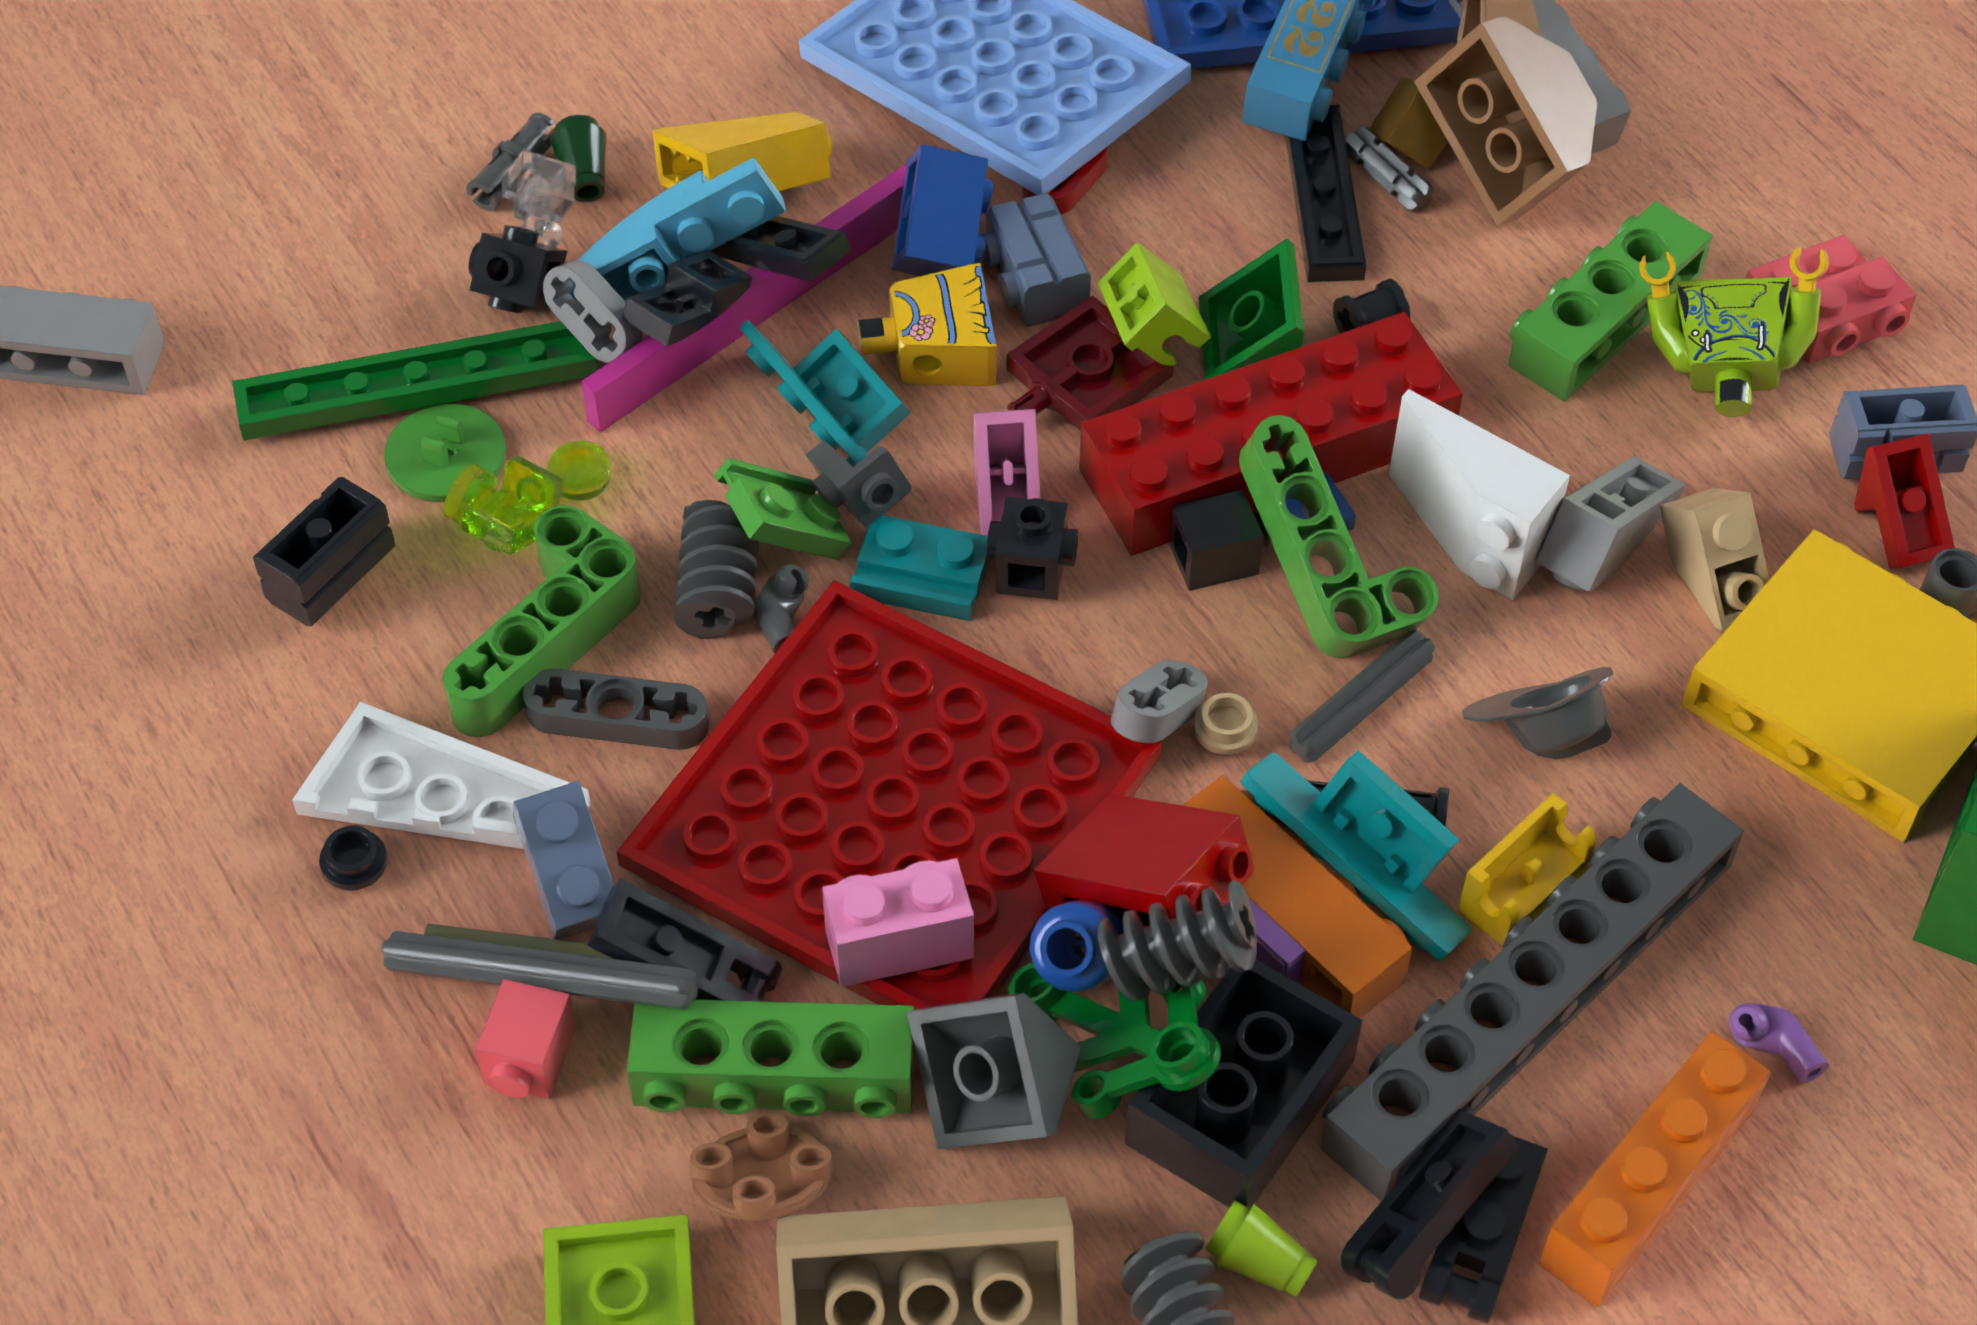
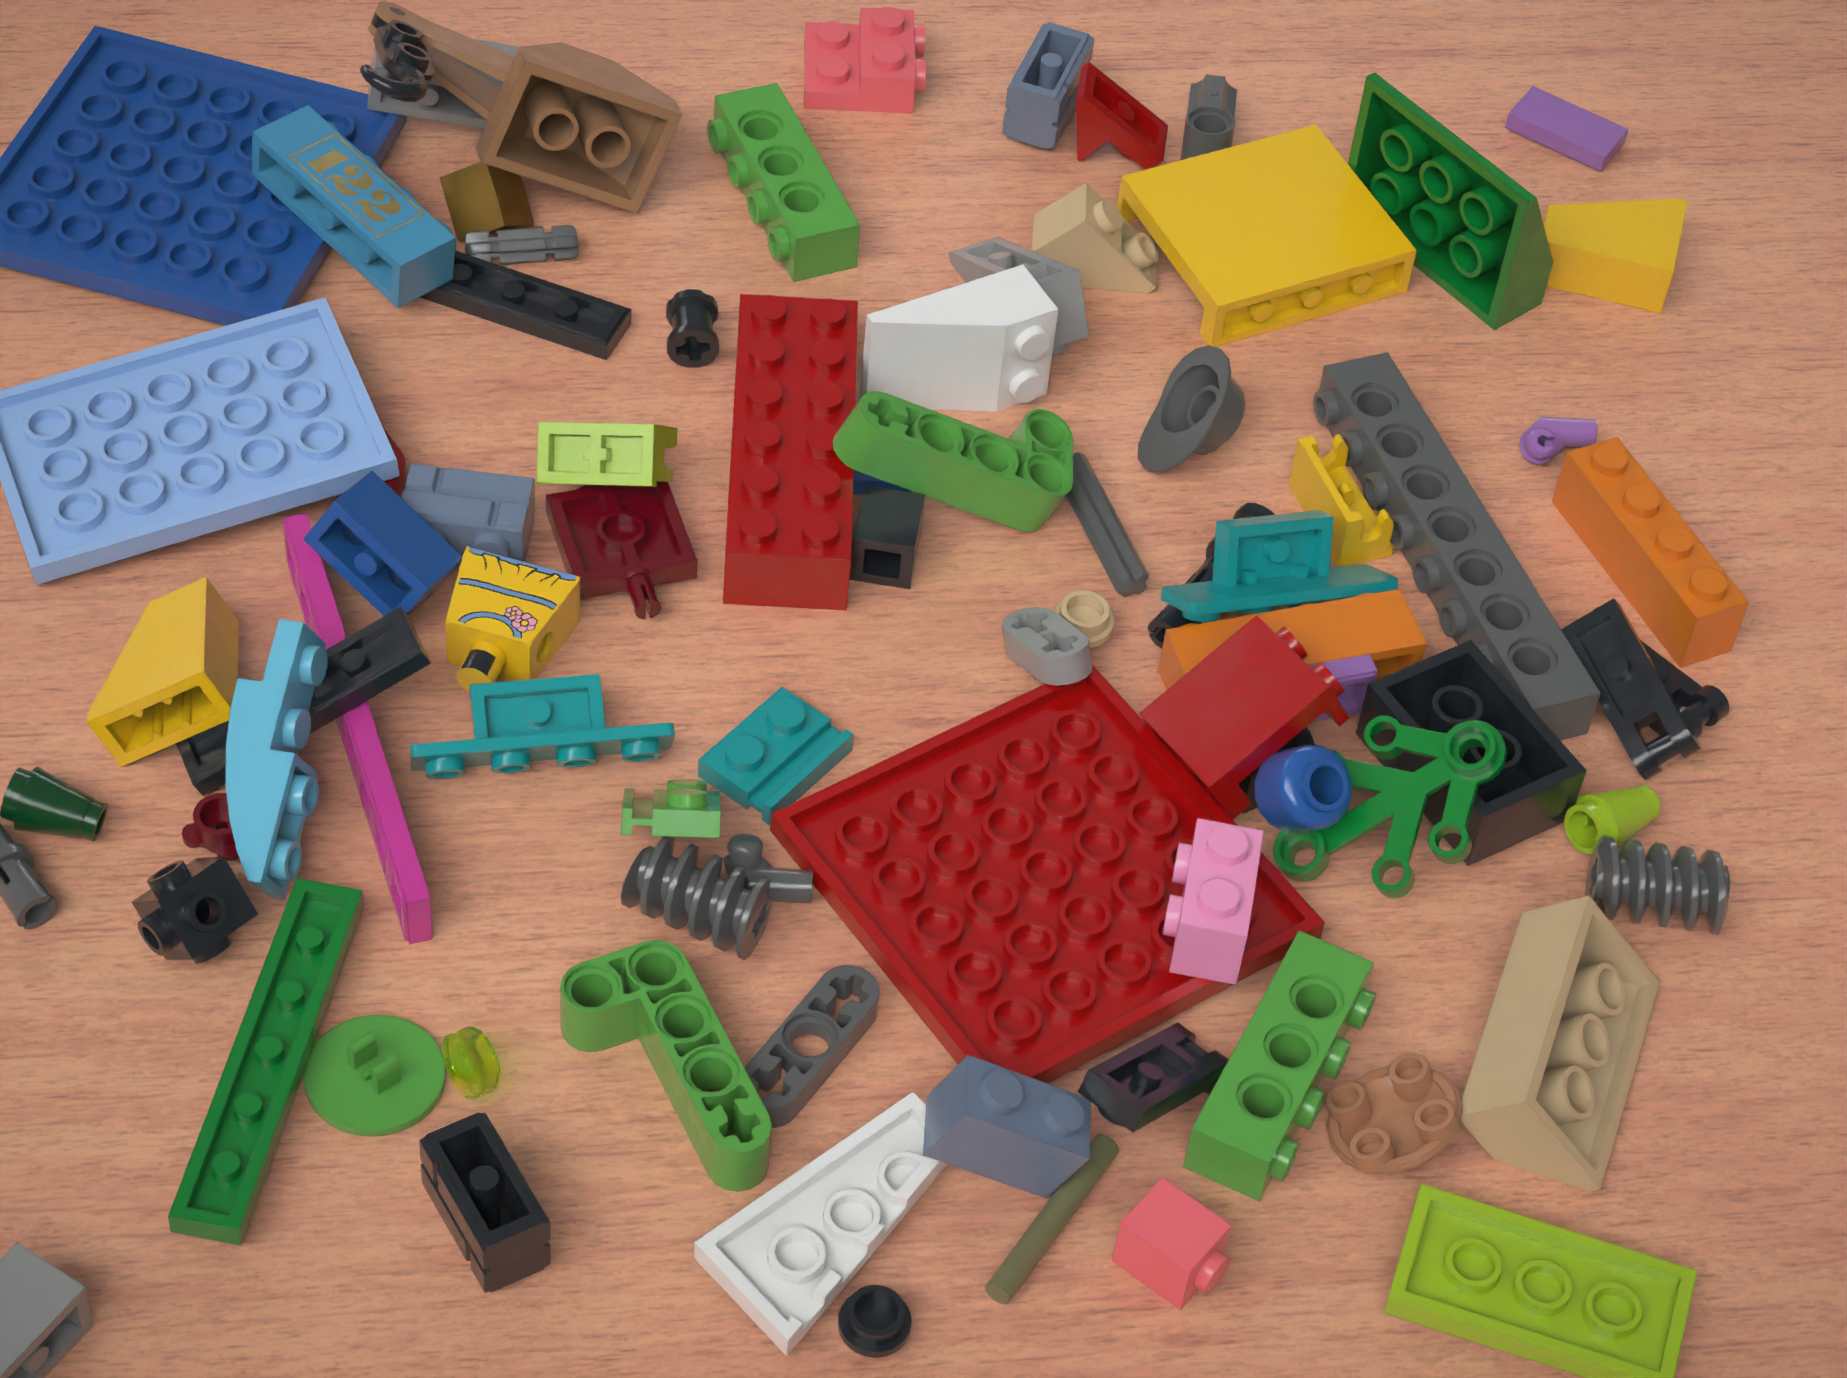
camera: 70 degrees left, 5 degrees down
(508, 516) = (519, 1029): clear neon green bracket -> none
(540, 193) = (90, 854): clear piece -> none
(541, 968) = (1111, 1200): dark grey axle -> none
(582, 468) = (481, 969): clear neon green tile -> none
(591, 311) = (321, 842): light grey beam -> none
(693, 296) = (368, 771): black slope -> none
(863, 489) = (671, 754): dark grey bracket -> none
(992, 1069) = (1398, 905): dark grey slope -> none
(1004, 461) = (721, 644): bright pink slope -> none
(1031, 547) = (826, 657): black brick -> none
(1182, 946) = (1375, 695): dark grey piece -> none
(1253, 312) = (665, 385): green slope -> none
(1734, 331) = (886, 118): lime torso -> none

